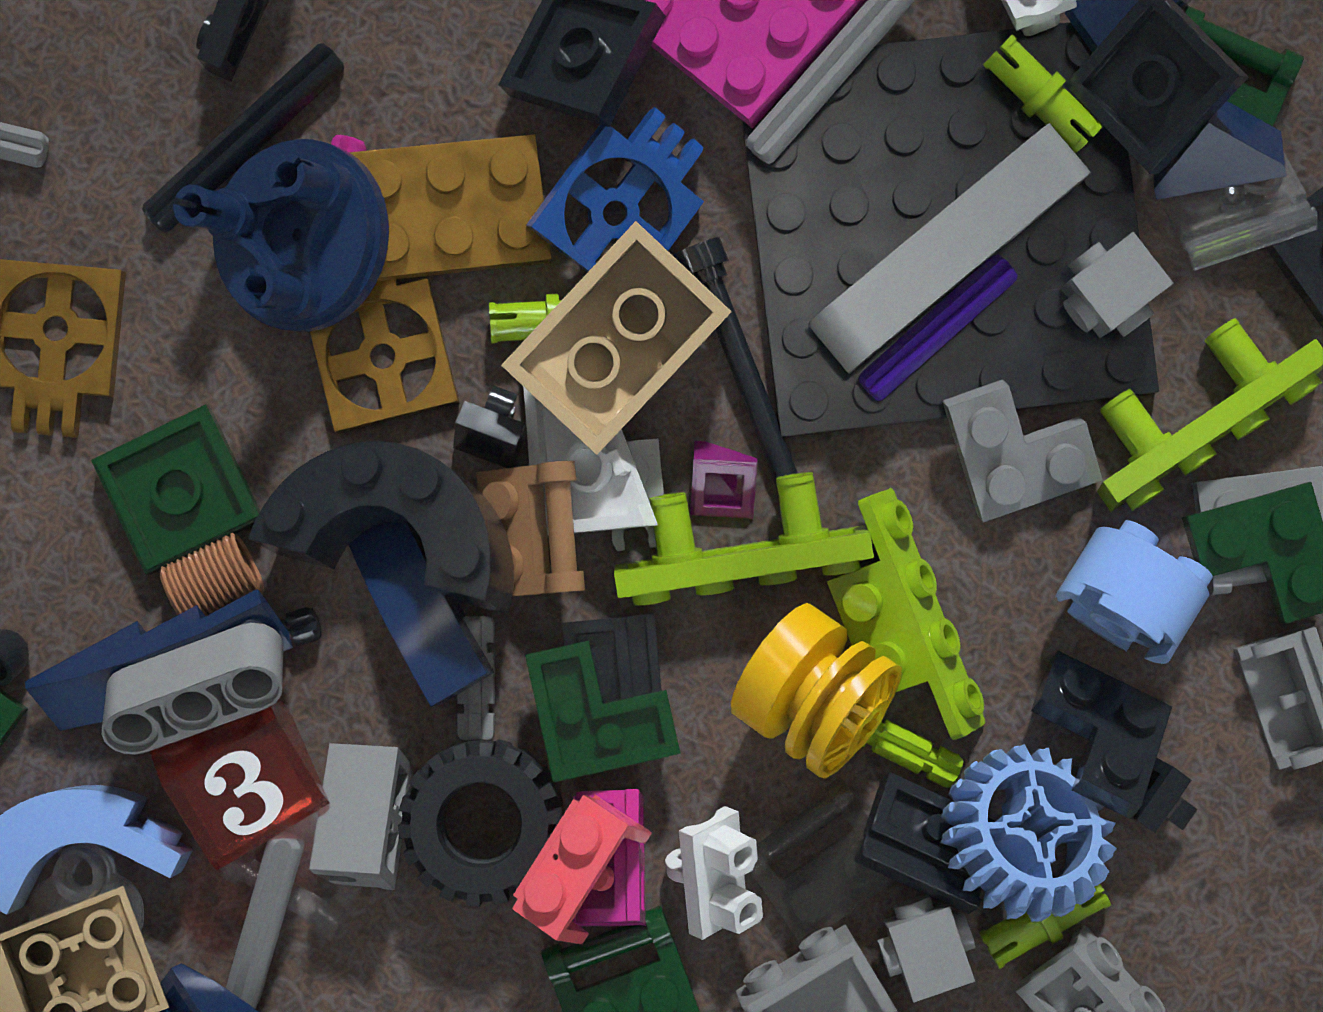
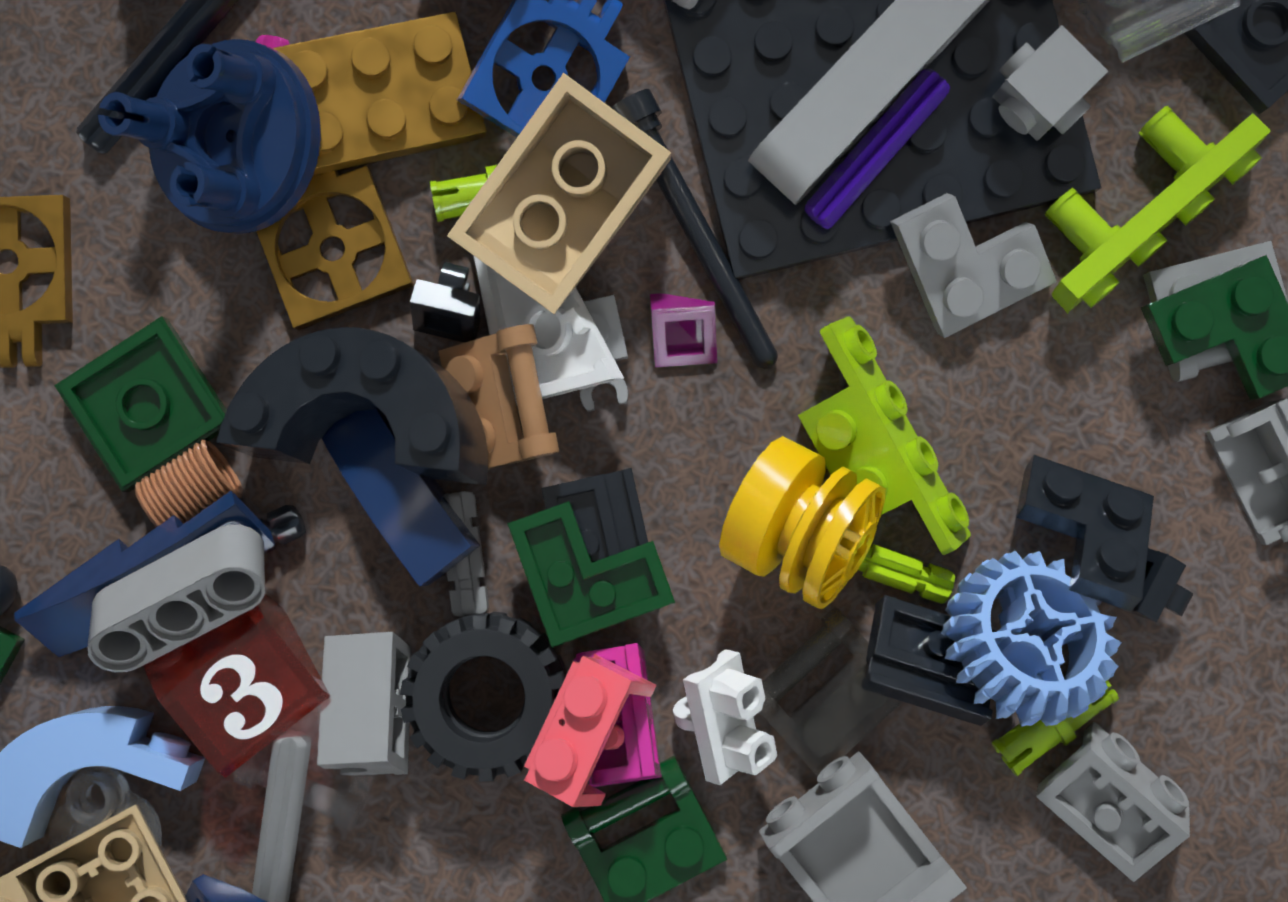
camera: 10 degrees left, 0 degrees up
(773, 561) = (744, 401): lime plate -> none
(927, 947) = (944, 764): light grey brick -> none
(1135, 590) = (1106, 384): light blue brick -> none

